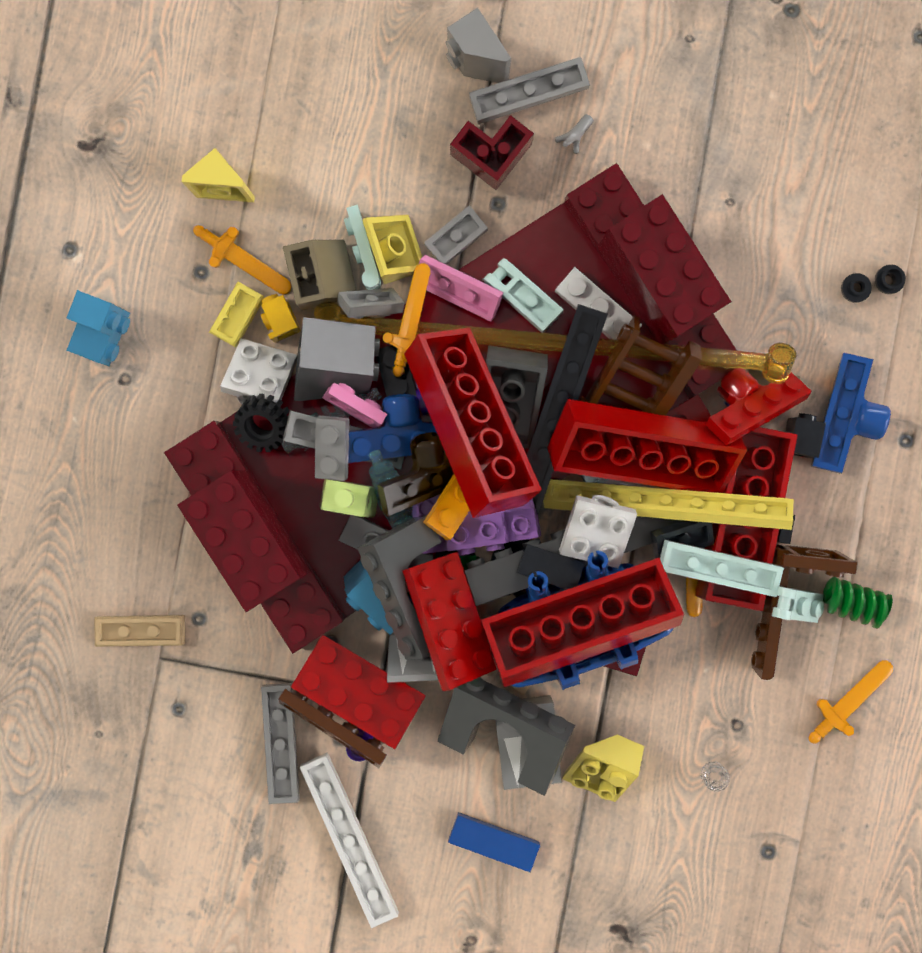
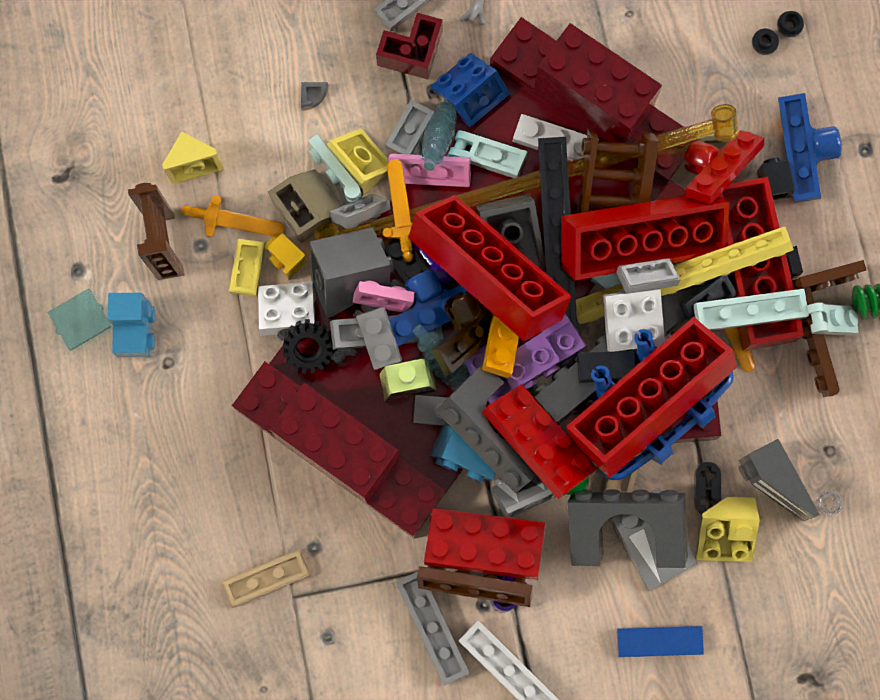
camera: 20 degrees left, 10 degrees down
(49, 299) = (79, 319): none -> clear light blue piece
(147, 245) = (156, 248): none -> reddish brown fence
(373, 159) = (312, 94): none -> flat silver tile
(482, 254) = (438, 134): none -> clear light blue piece
(535, 218) = (471, 88): none -> blue bracket
(595, 712) = (700, 486): none -> black beam
(630, 493) = (648, 275): none -> light grey plate
(672, 728) = (776, 477): none -> dark grey slope

